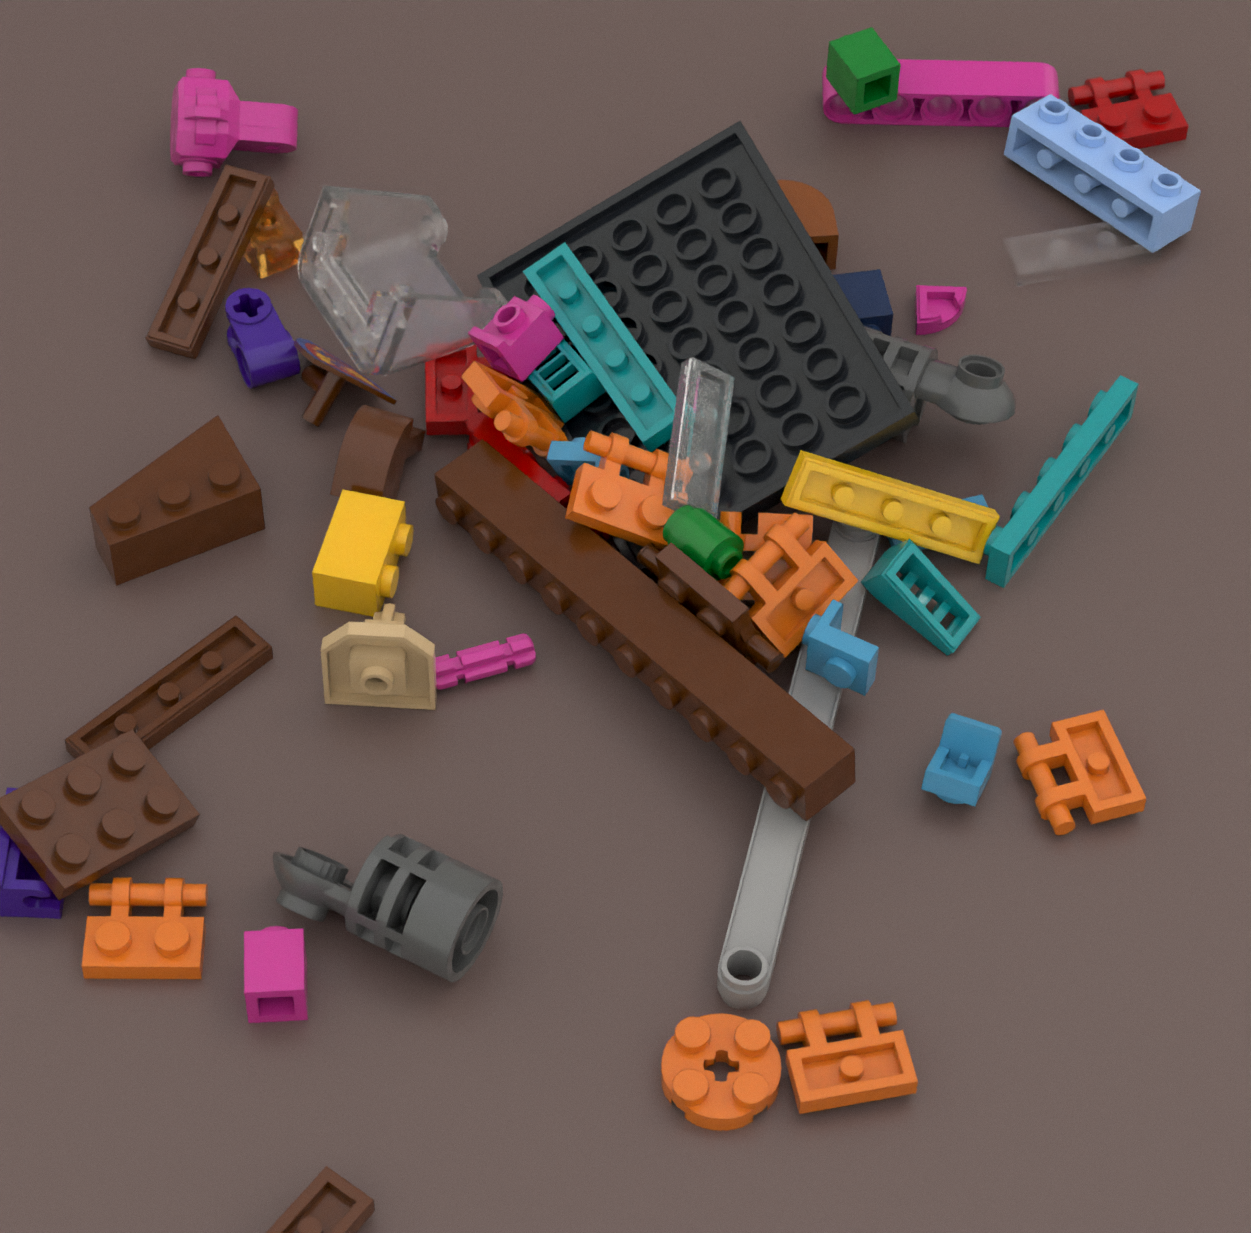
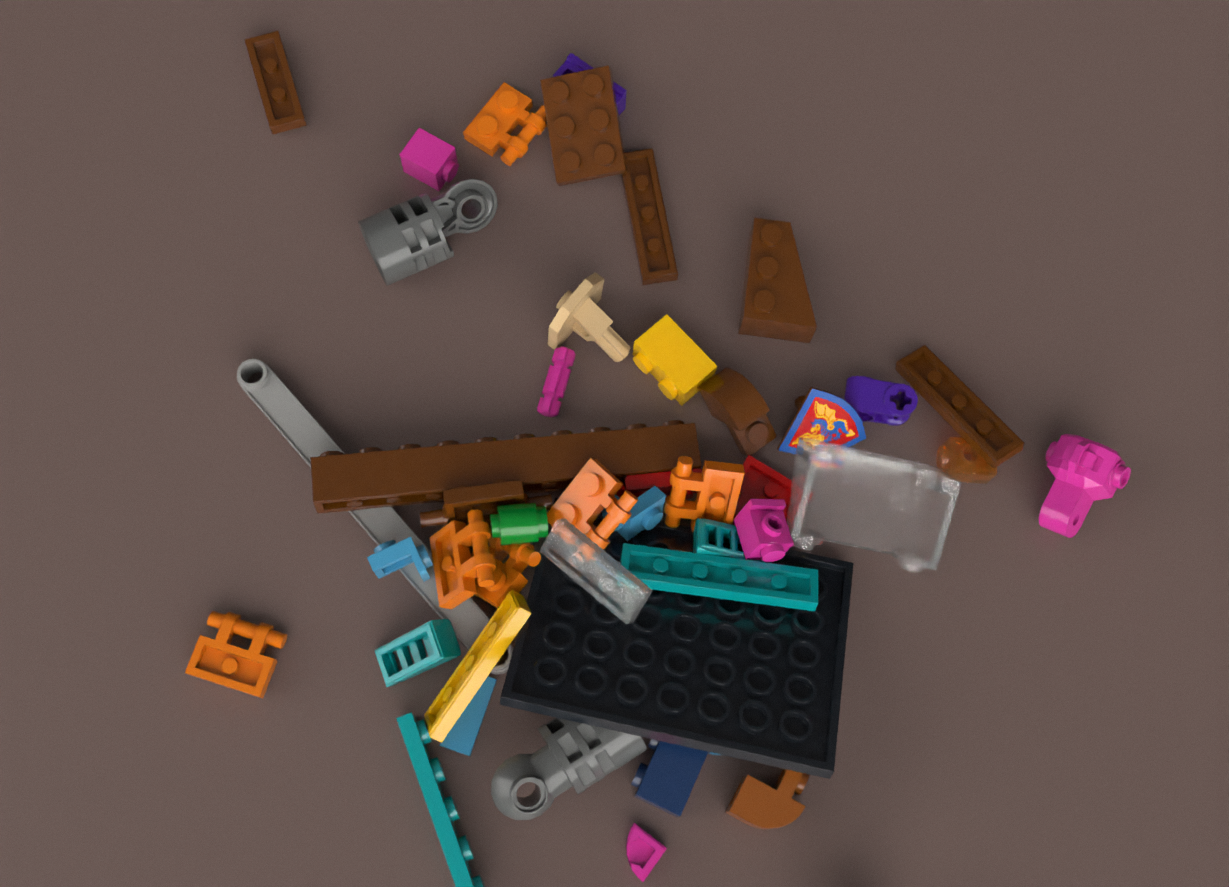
camera: 120 degrees right, 20 degrees up
(725, 1039) = (205, 317): orange plate -> none
(851, 1069) = (161, 392): orange plate -> none
(962, 760) = (288, 586): dark azure bracket -> none

